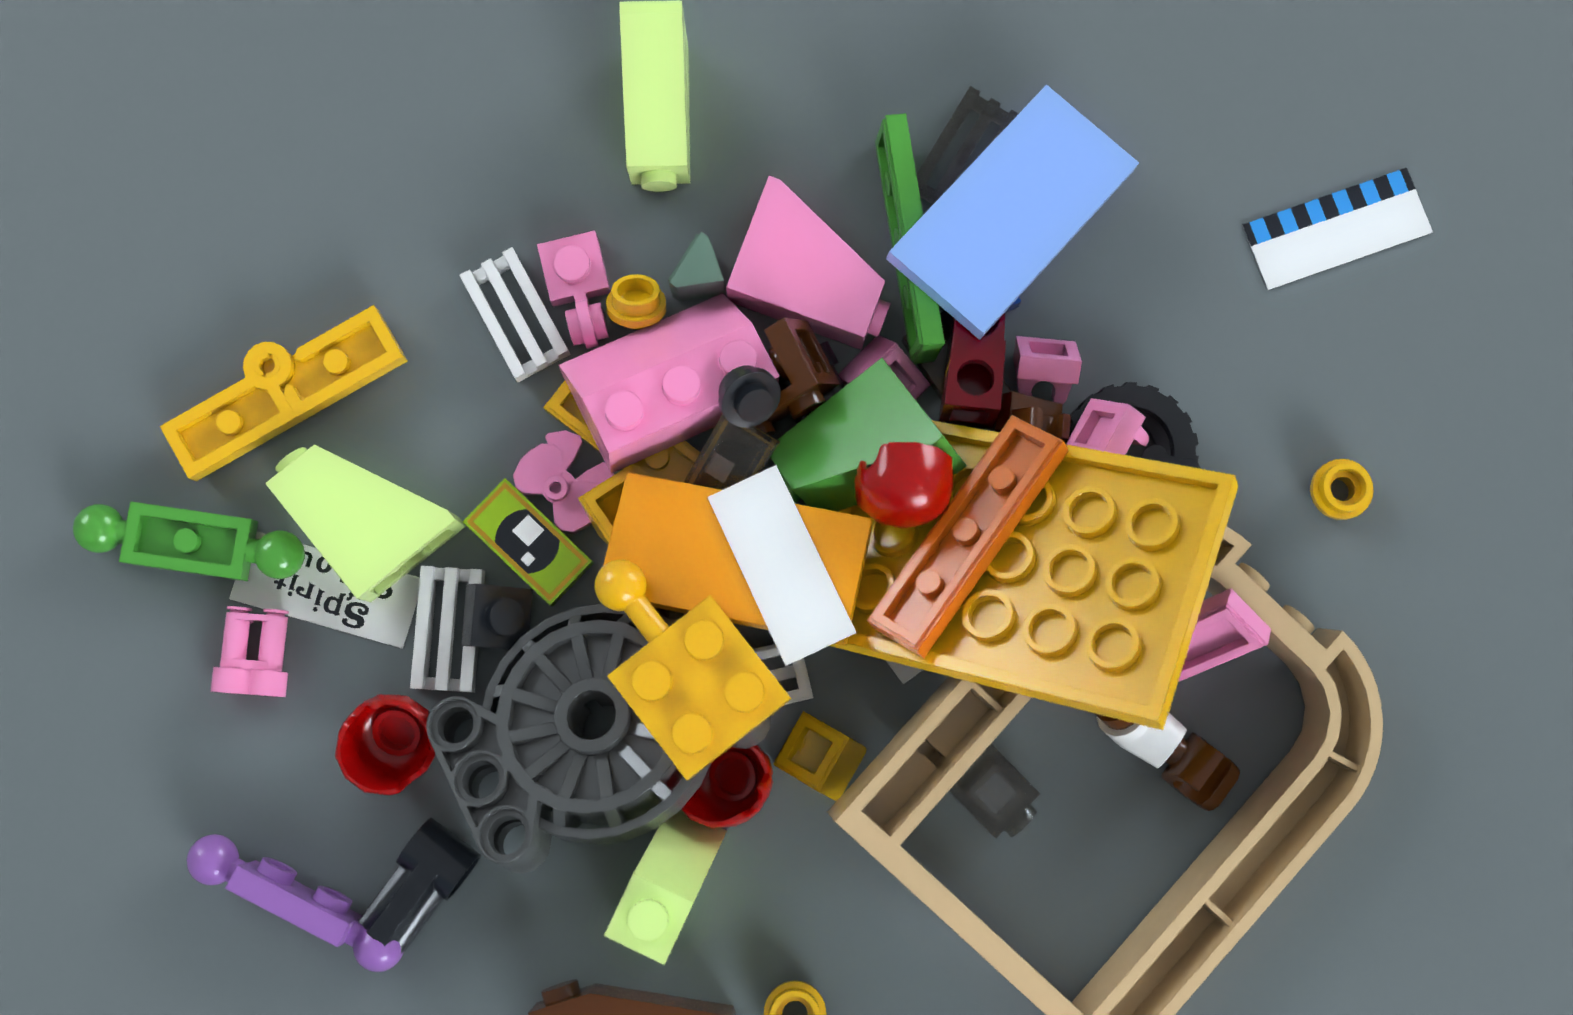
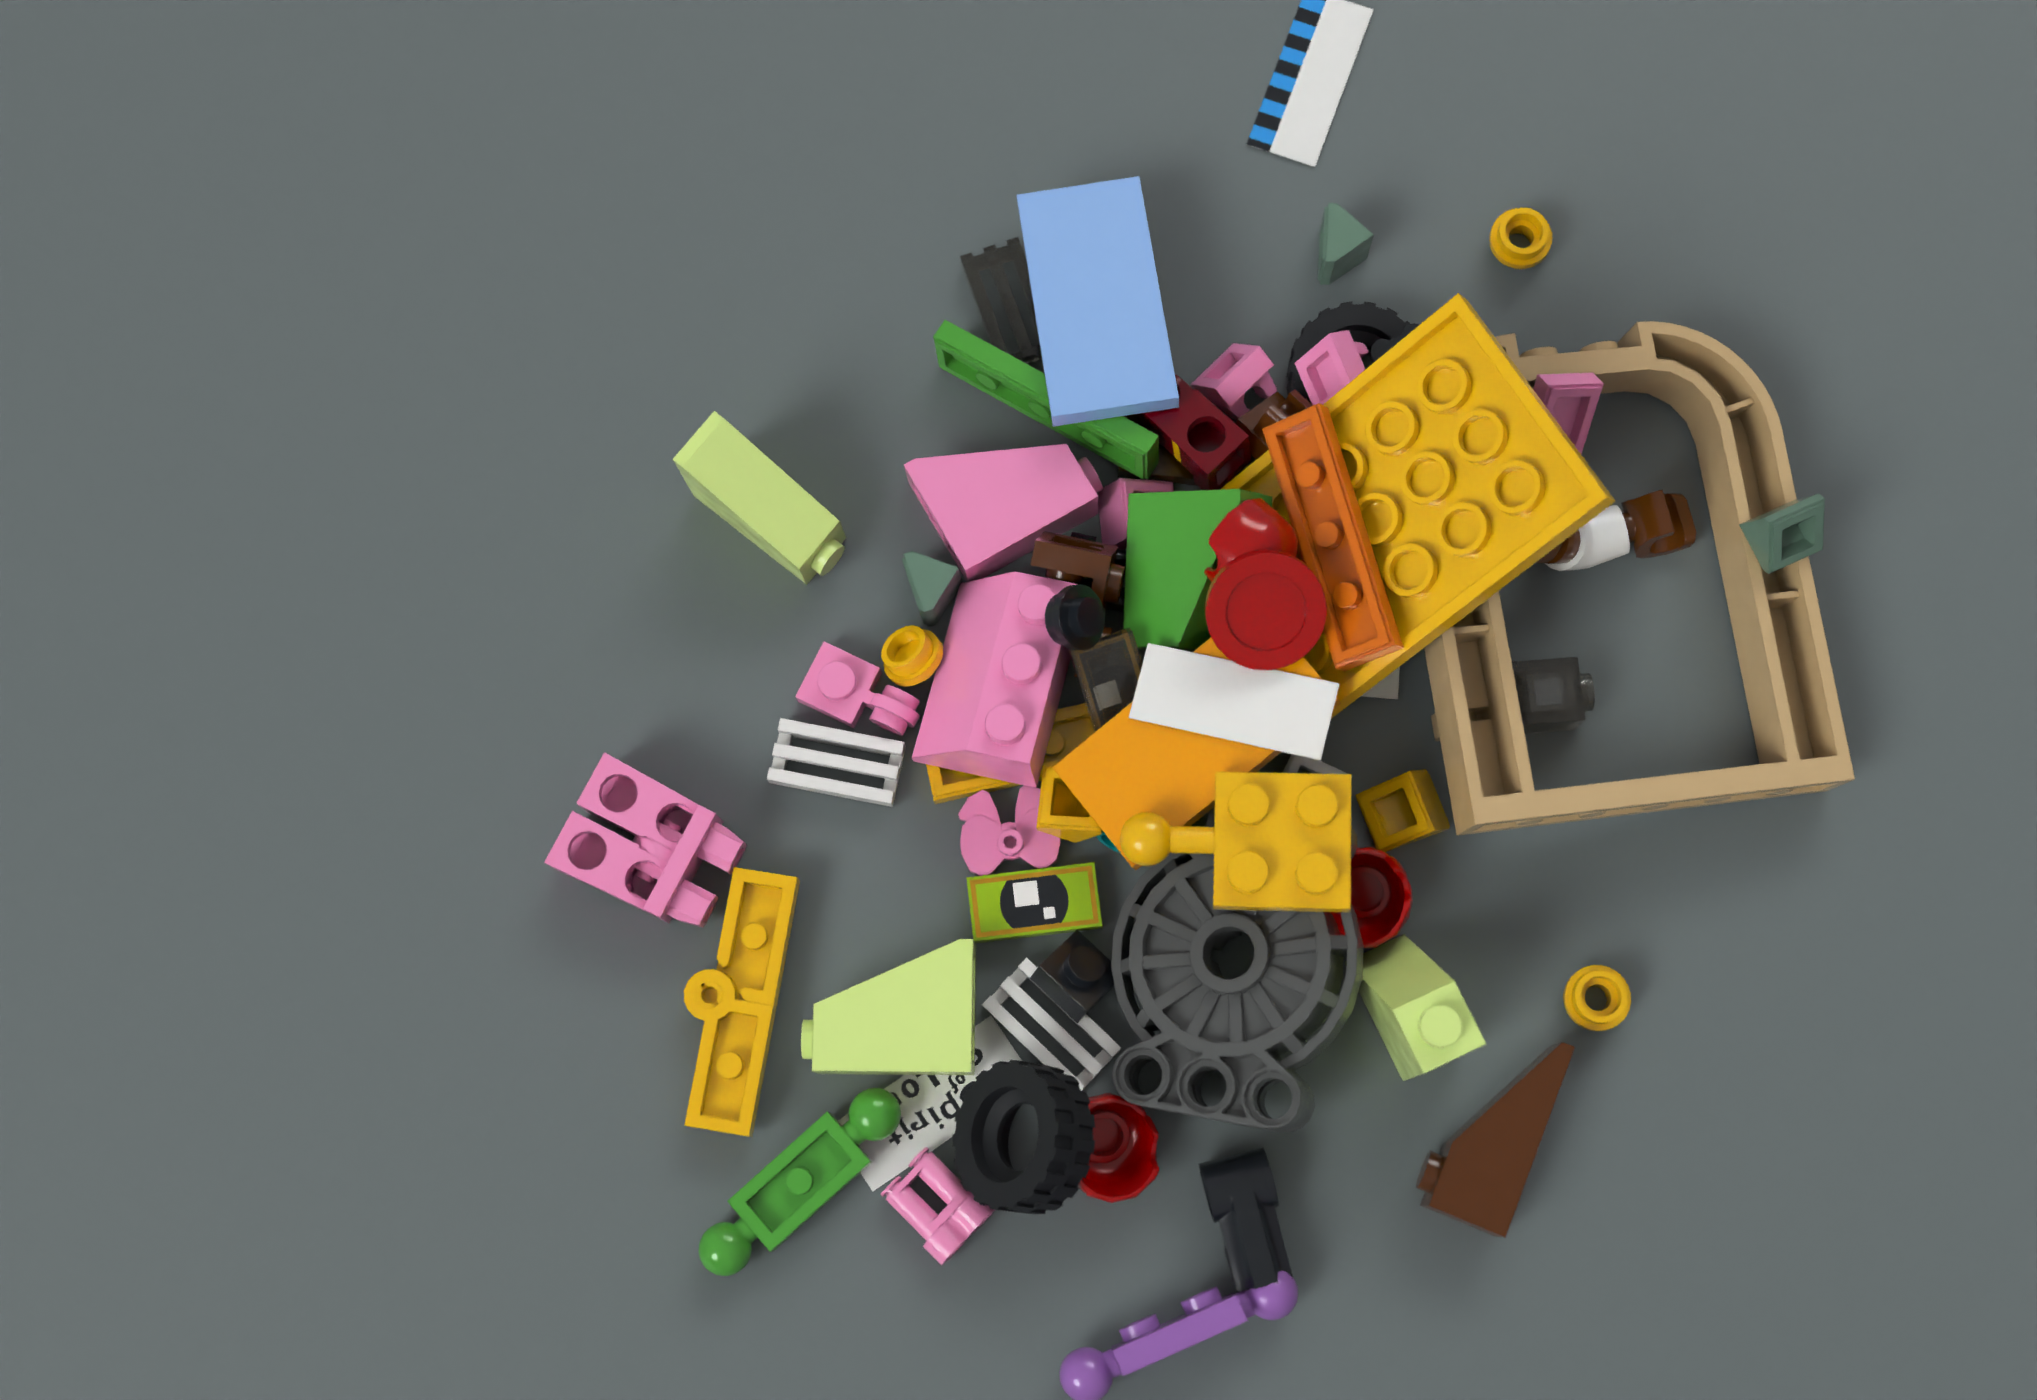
camera: 40 degrees left, 5 degrees down
(338, 227) = (664, 855): none -> bright pink hips
(359, 699) = (1061, 1147): none -> black tyre
(864, 531) = (1265, 609): none -> red piece
(1220, 358) = (1341, 243): none -> sand green slope
(1269, 878) = (1787, 532): none -> sand green slope

